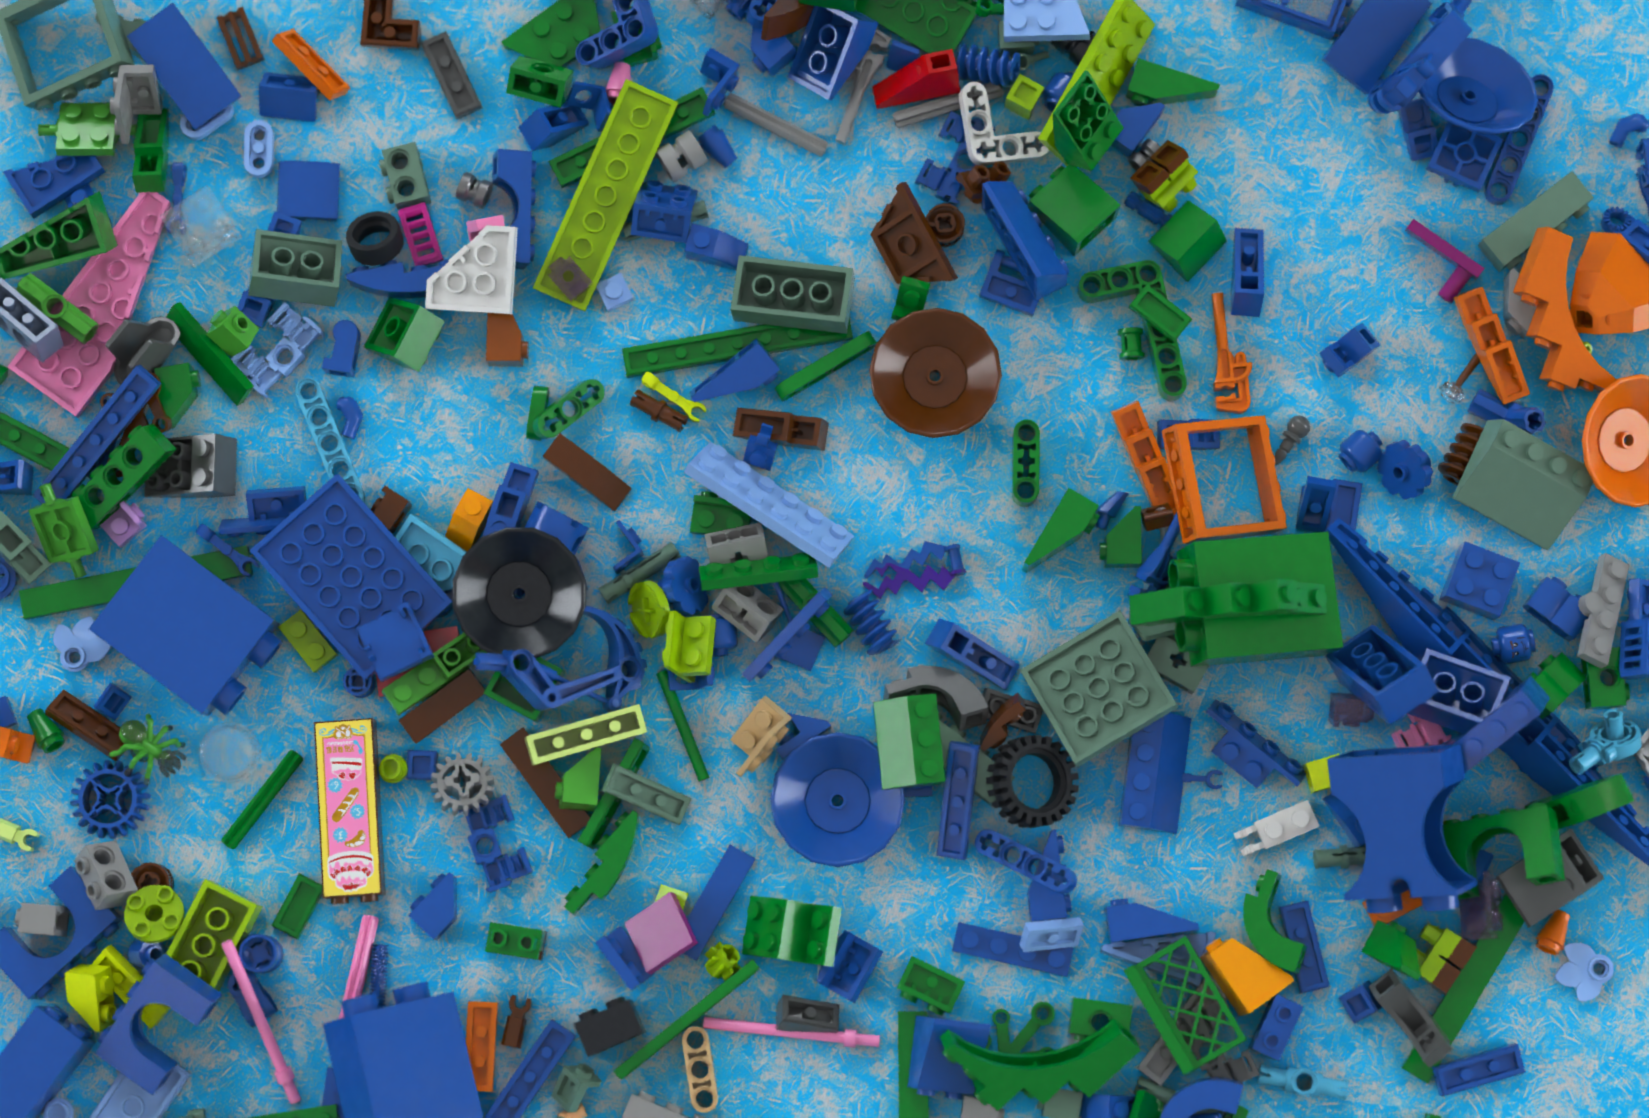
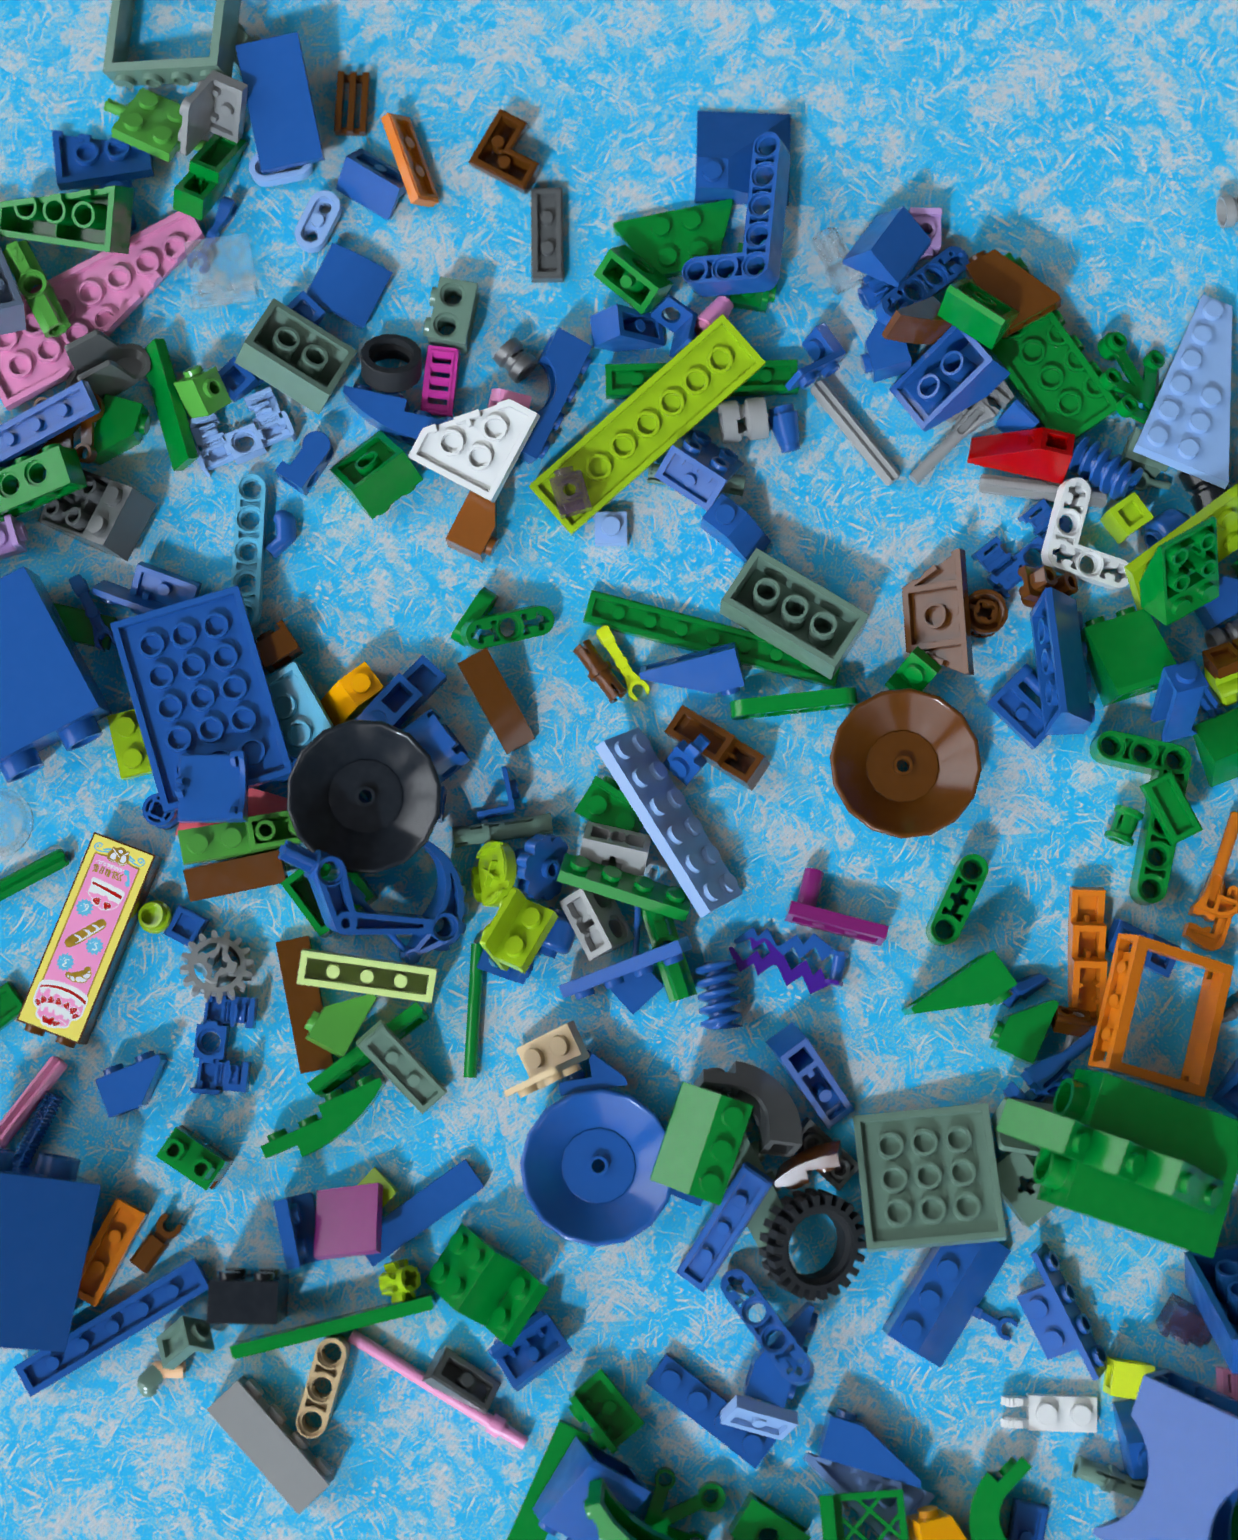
camera: 20 degrees right, 0 degrees up
(913, 528) = (807, 914): none -> magenta piece
(1127, 225) = (1179, 699): none -> blue window

